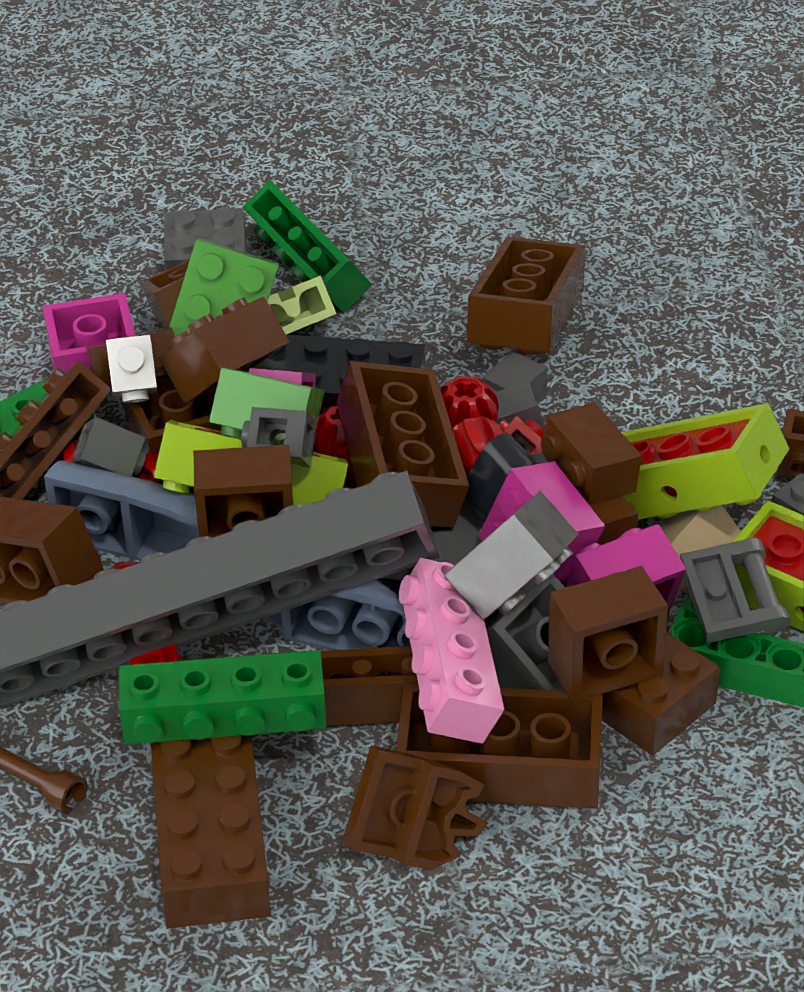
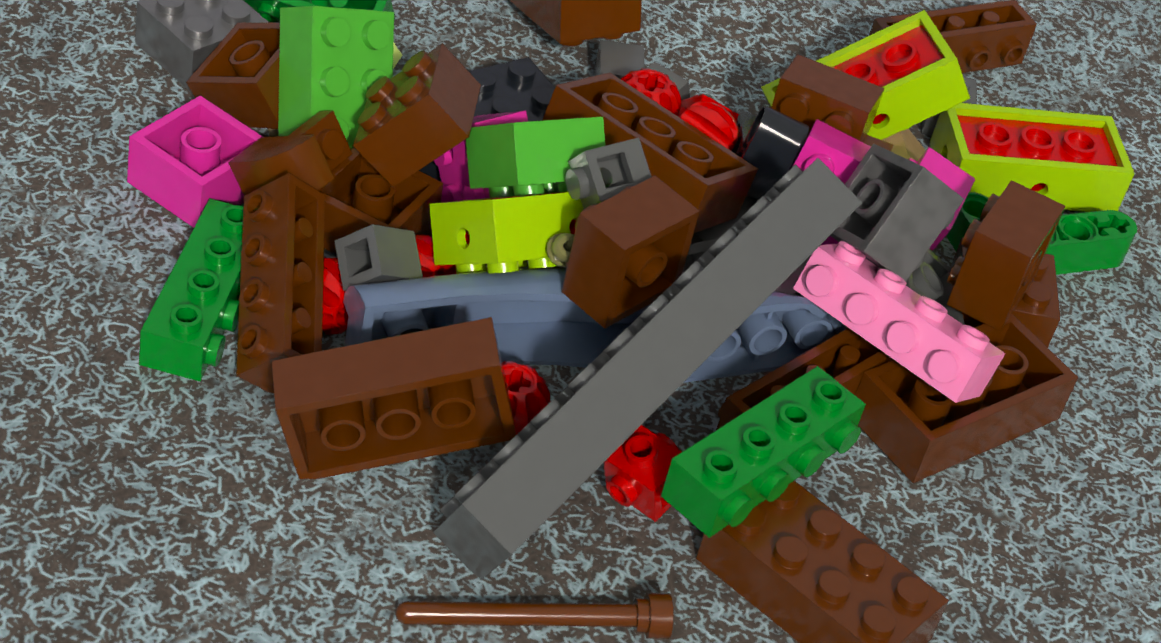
camera: 50 degrees left, 0 degrees up
(131, 368) = (338, 163): white bracket -> none
(411, 809) = (966, 483): reddish brown plate -> none
(719, 595) = (997, 165): dark grey plate -> none

